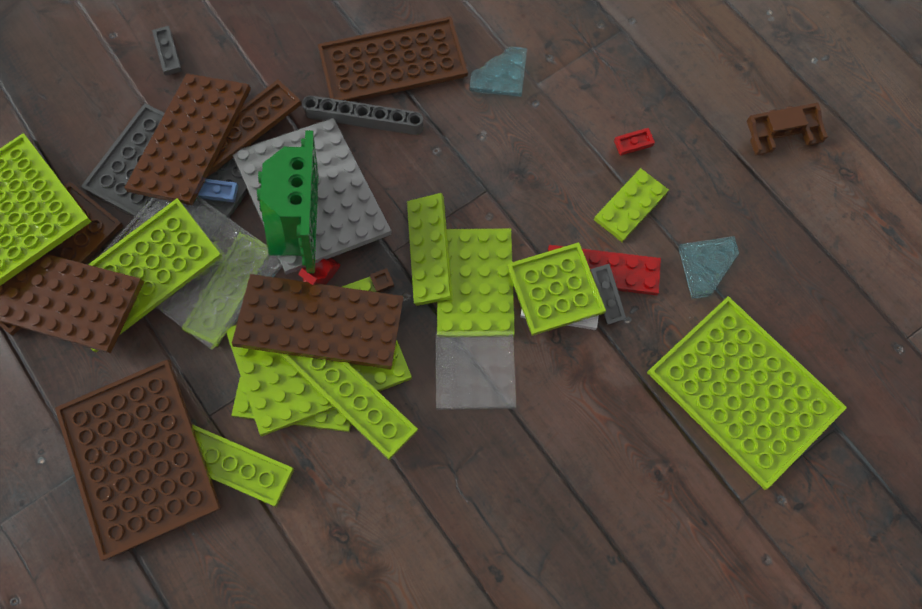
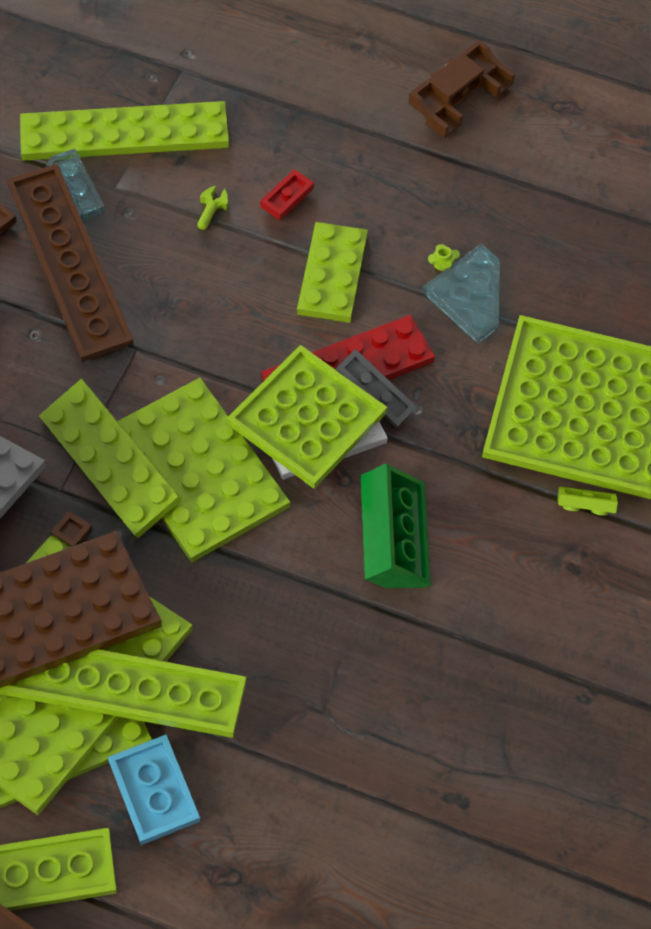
camera: 35 degrees left, 10 degrees down
(331, 460) = (153, 789): none -> medium azure plate
(475, 370) = (268, 572): clear plate -> none
(479, 117) = (70, 263): none -> reddish brown plate
(564, 387) = (394, 529): none -> green slope
(565, 51) = (124, 130): none -> lime plate
(585, 125) = (219, 203): none -> lime bar
(694, 438) = (598, 502): none -> lime plate
(701, 235) = (443, 257): none -> lime plate

